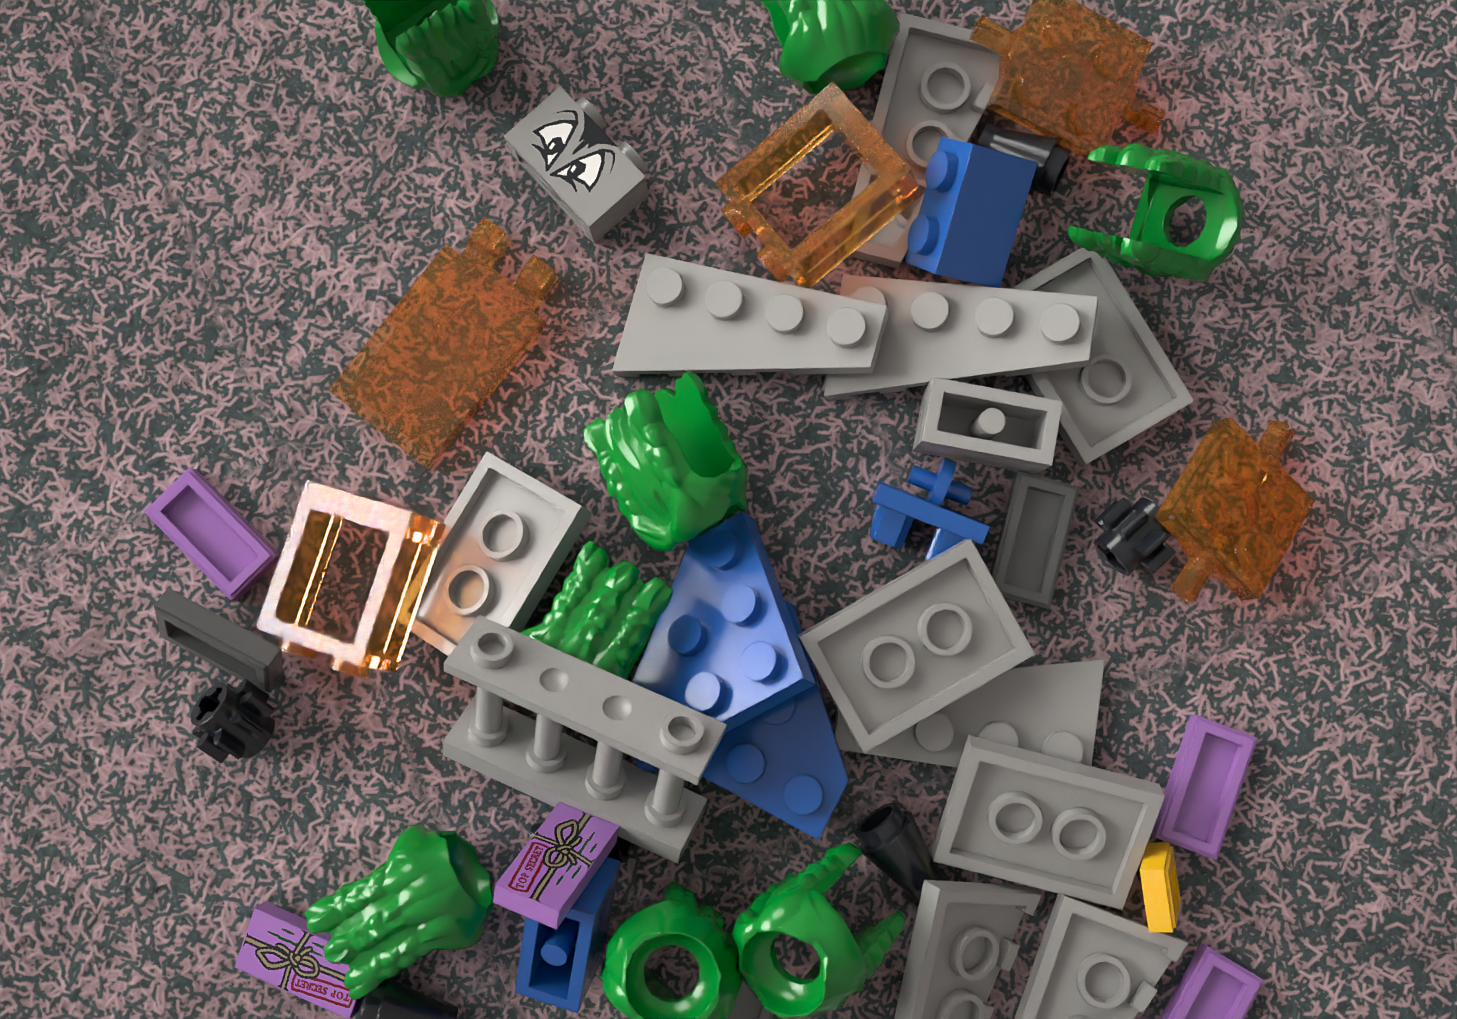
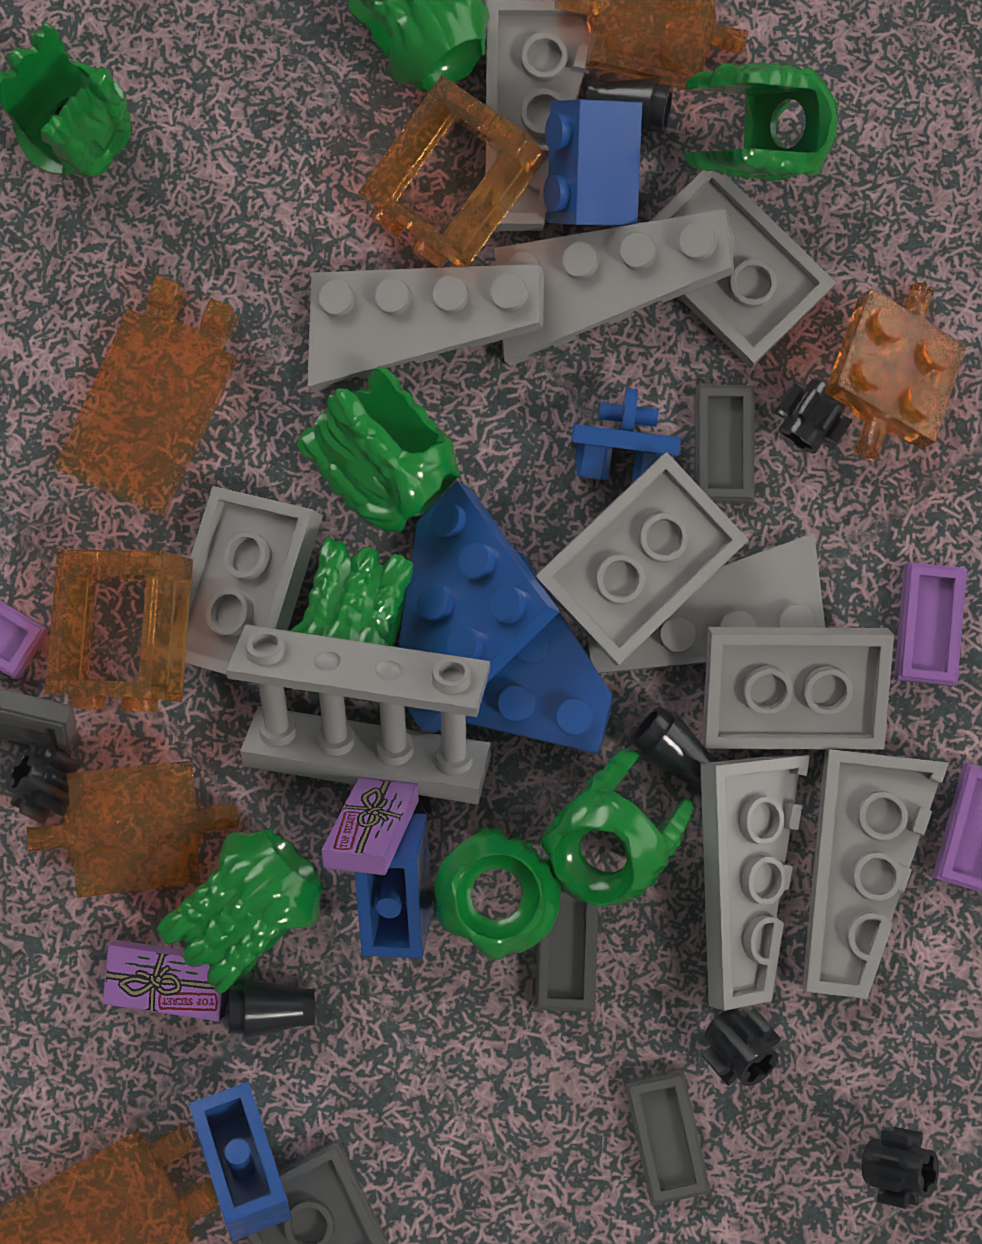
camera: 15 degrees left, 0 degrees up
(310, 792) = (132, 828): none -> clear orange plate
(578, 163) = (230, 206): light grey brick -> none
(987, 426) = (656, 350): light grey brick -> none
(1160, 887) = (911, 719): yellow tile -> none

